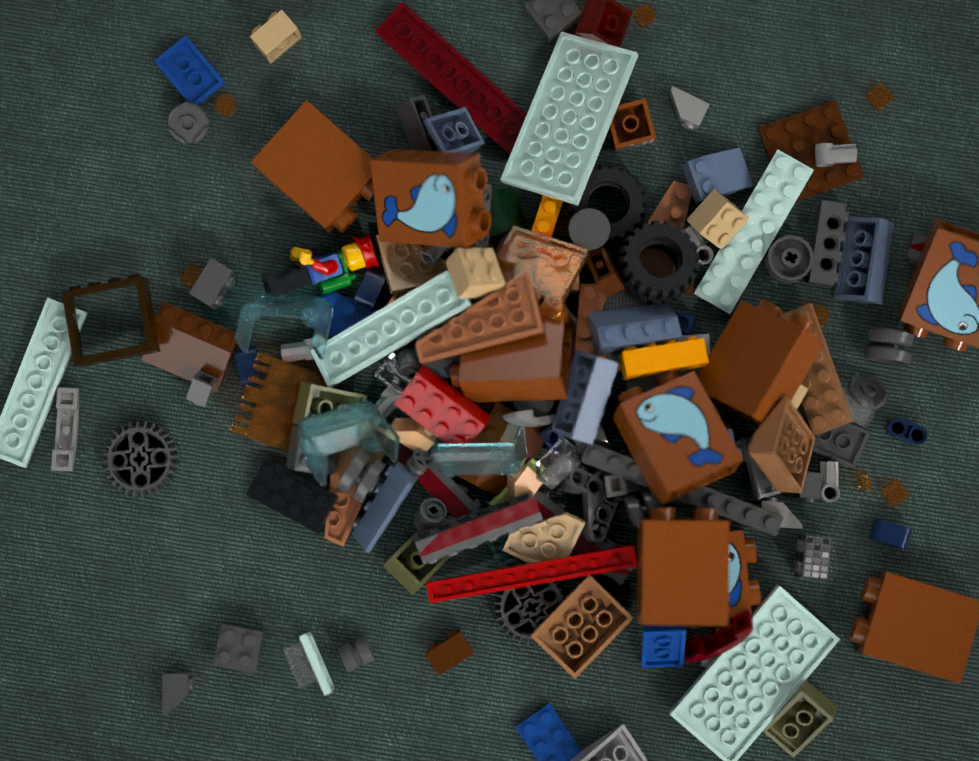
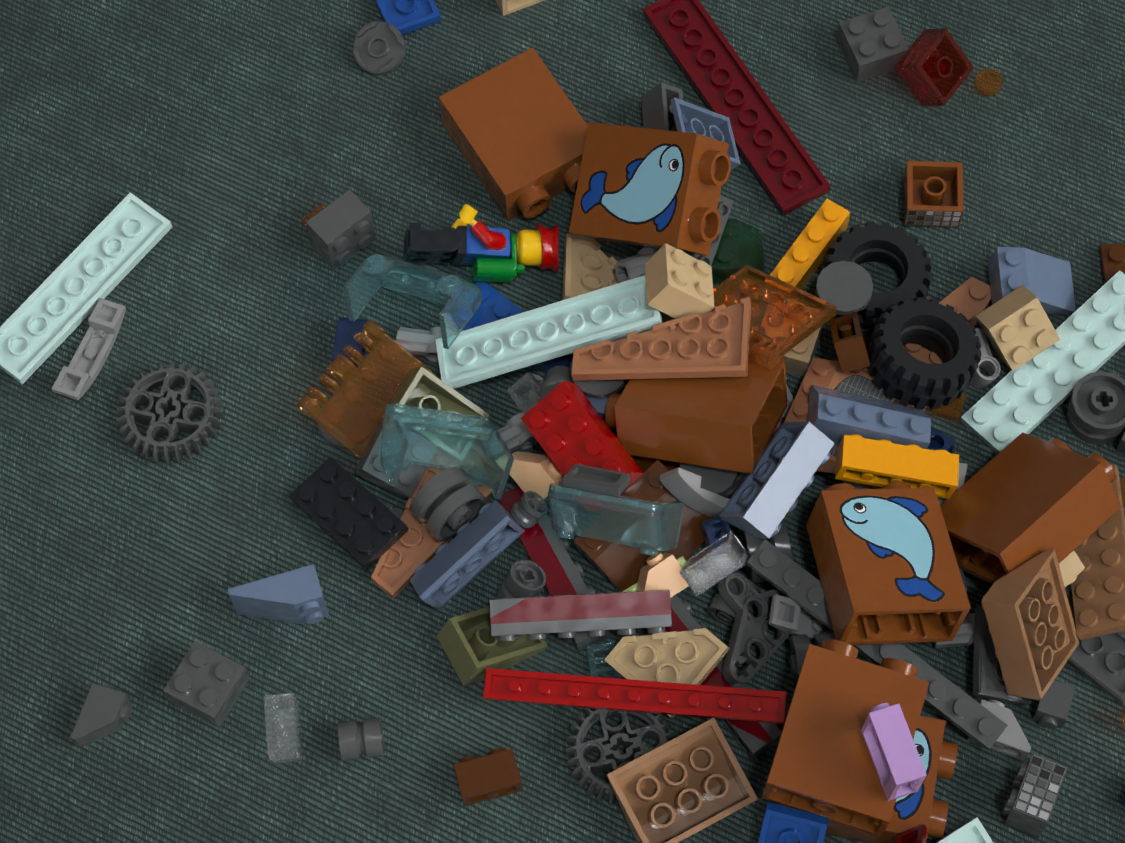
camera: 20 degrees right, 20 degrees down
(147, 312) = (197, 272): dark brown window -> none
(191, 345) = (285, 298): reddish brown slope -> none
(202, 389) = (280, 350): dark grey brick -> none
(225, 105) = (432, 44): clear orange tile -> none
(277, 571) = (283, 597): none -> sand blue slope
(317, 663) = (303, 731): light aqua tile -> none
(370, 289) = (538, 291): dark blue beam -> none
(463, 441) = (596, 480): none -> dark grey tile
(569, 118) = (857, 159): light aqua plate -> none
(688, 108) = (1015, 197): light grey slope -> none
(720, 584) = (893, 751): none -> lavender window
(829, 479) = (1083, 705): light grey piece -> none

